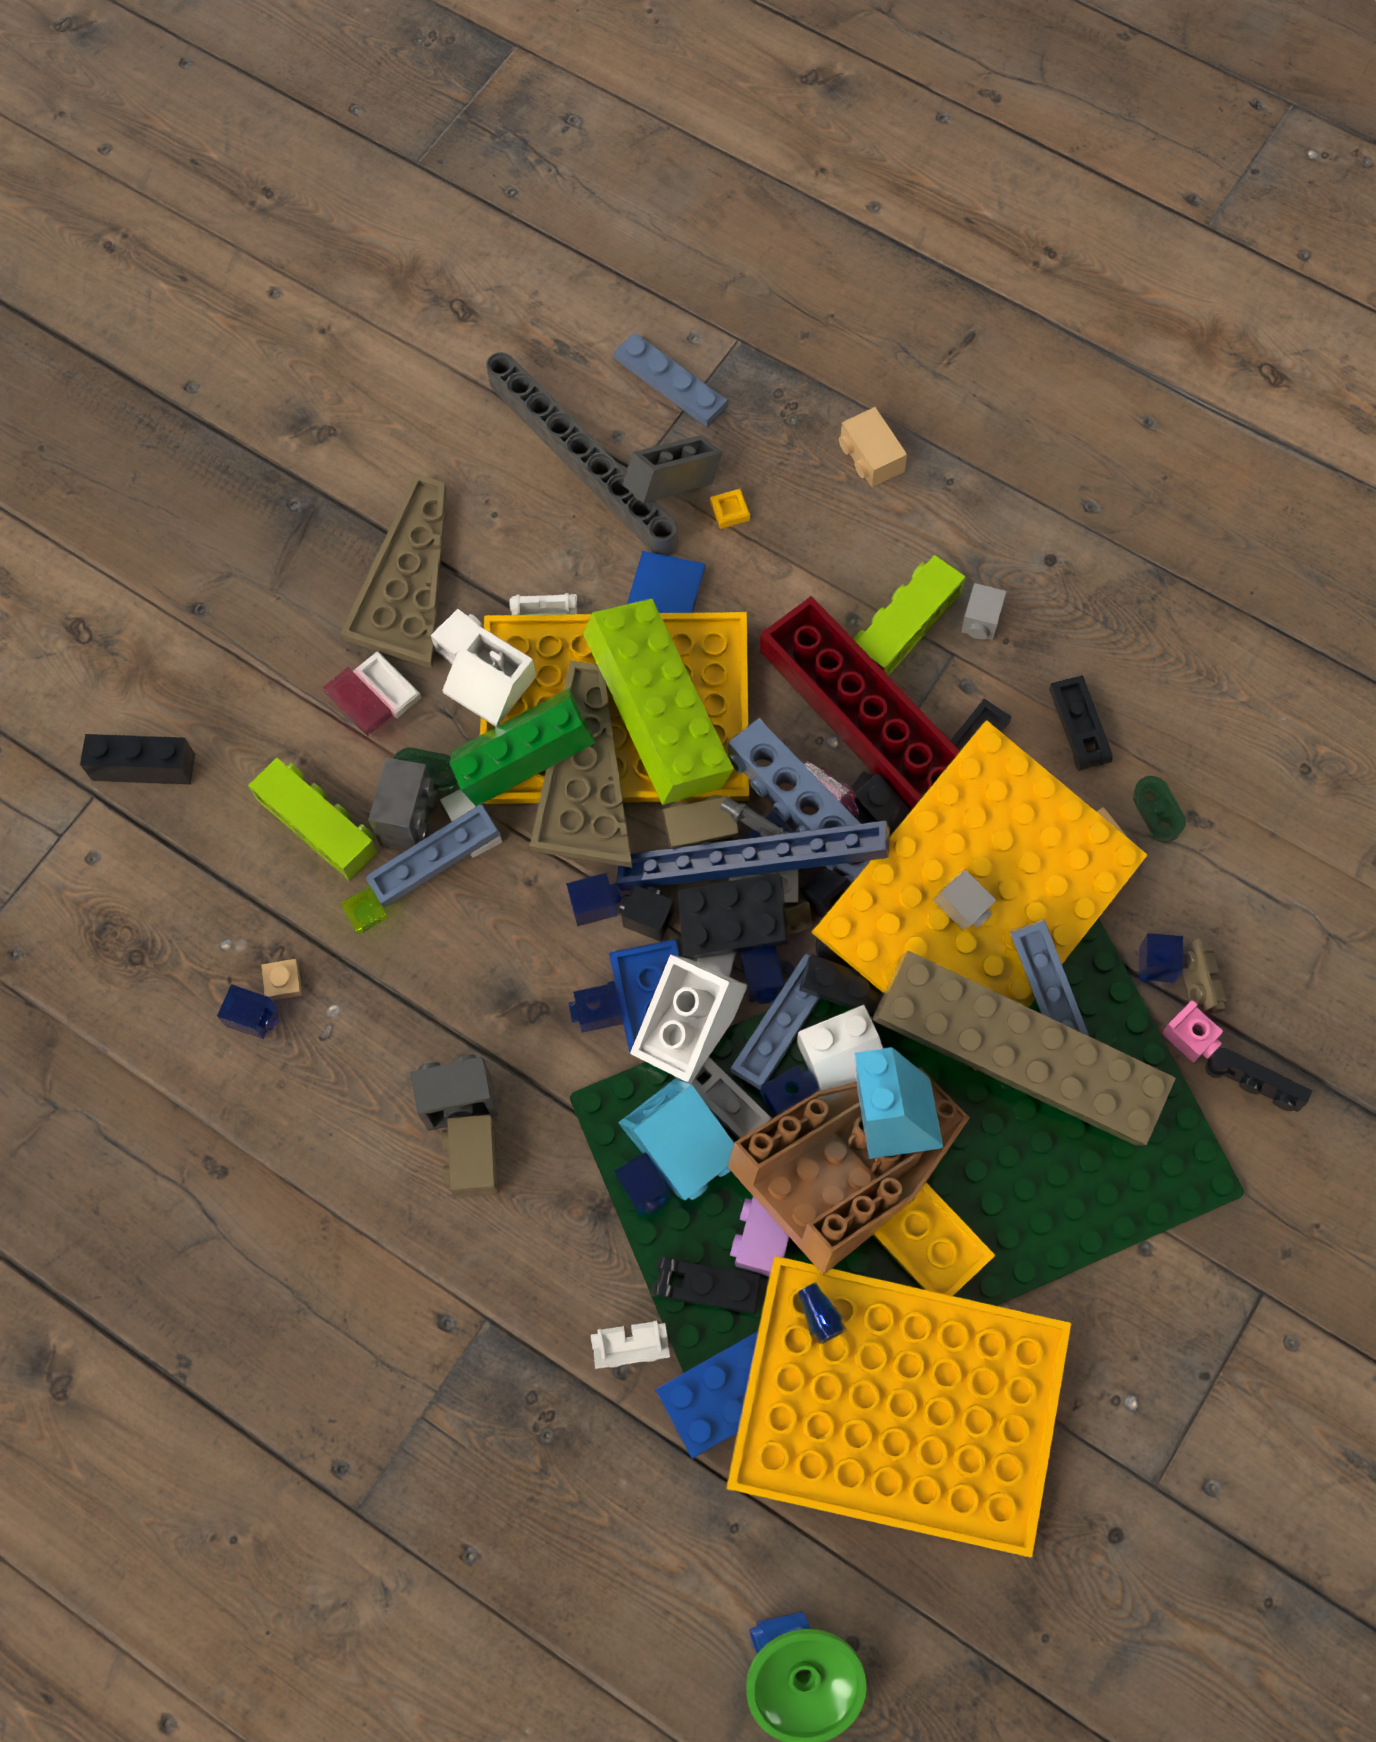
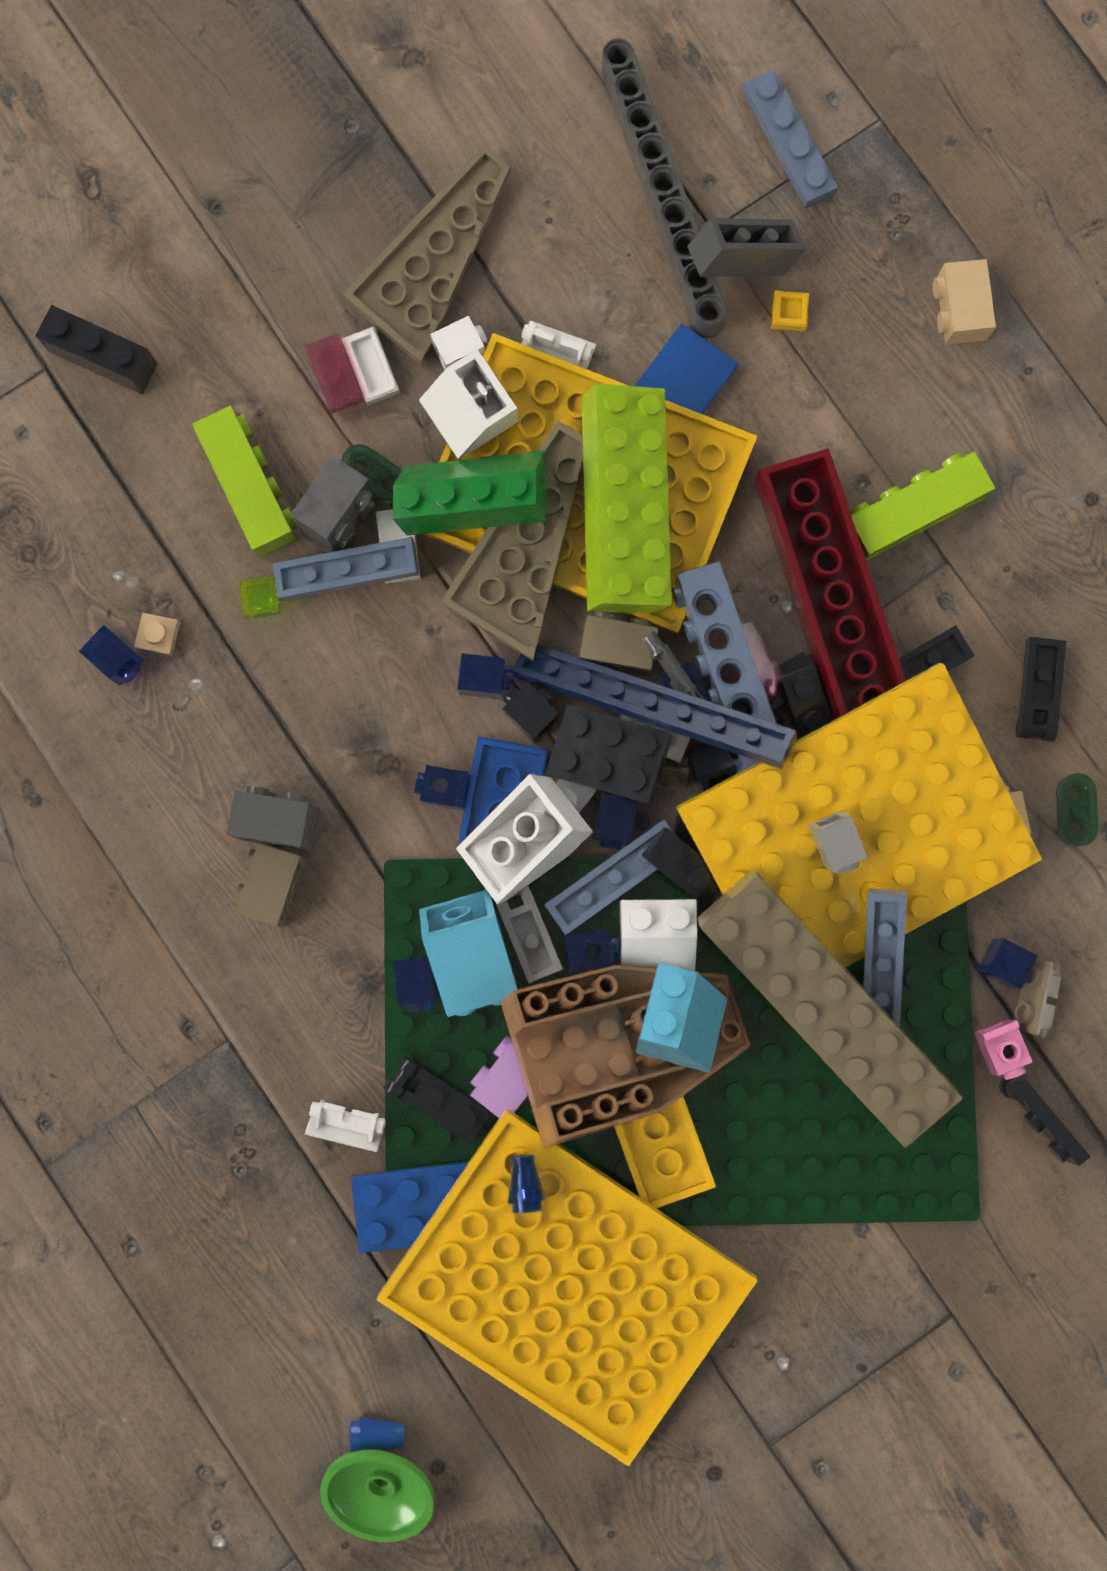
camera: 20 degrees right, 15 degrees up
(983, 612) = (997, 531): light grey brick -> none

